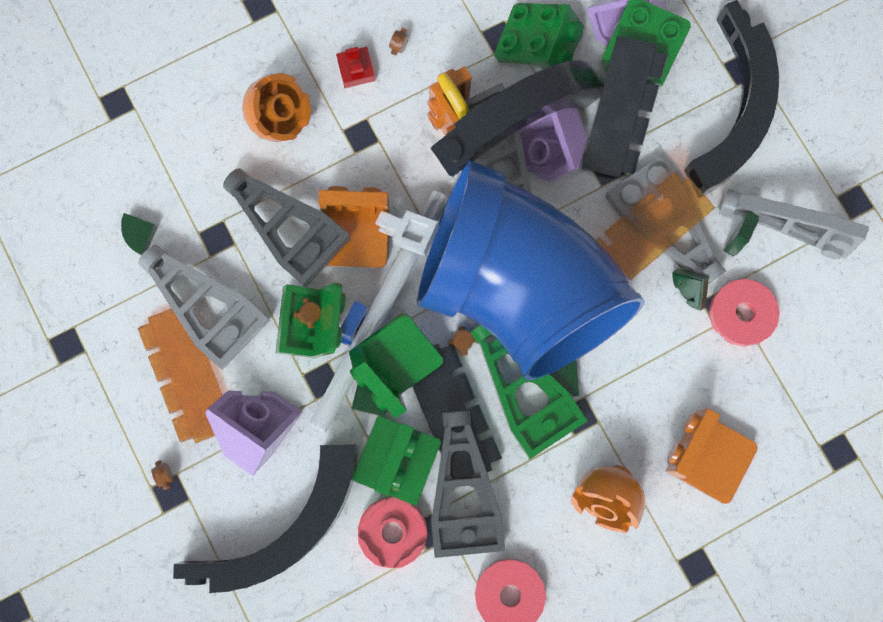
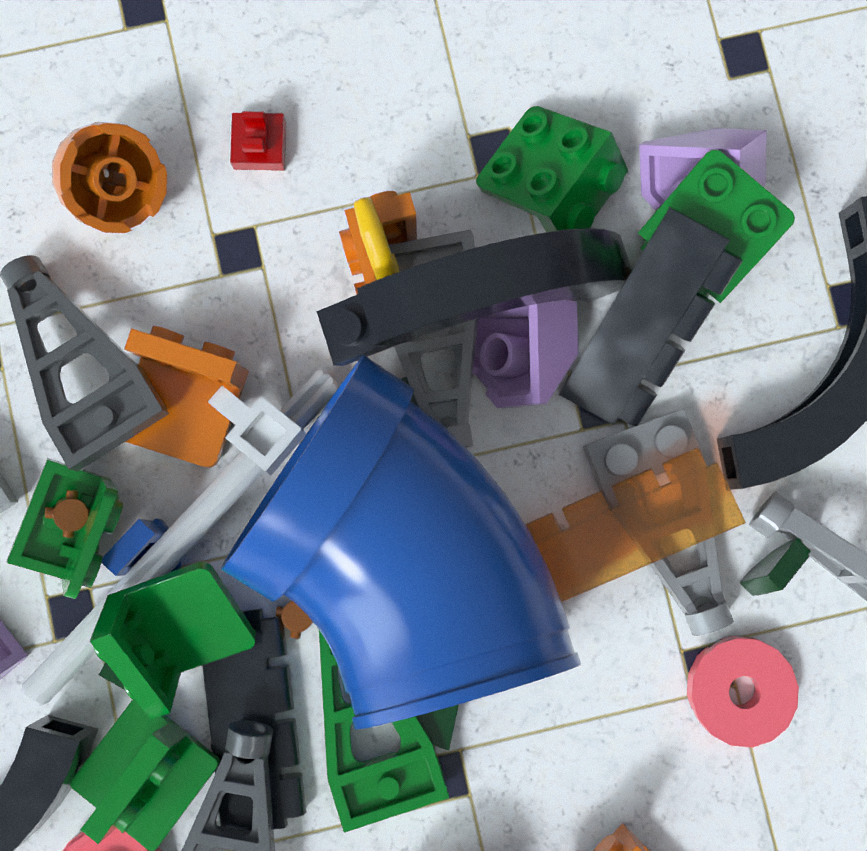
camera: 15 degrees right, 5 degrees up
(398, 41) = (335, 118): dark orange piece -> none
(692, 287) = (674, 631): dark green tile -> none

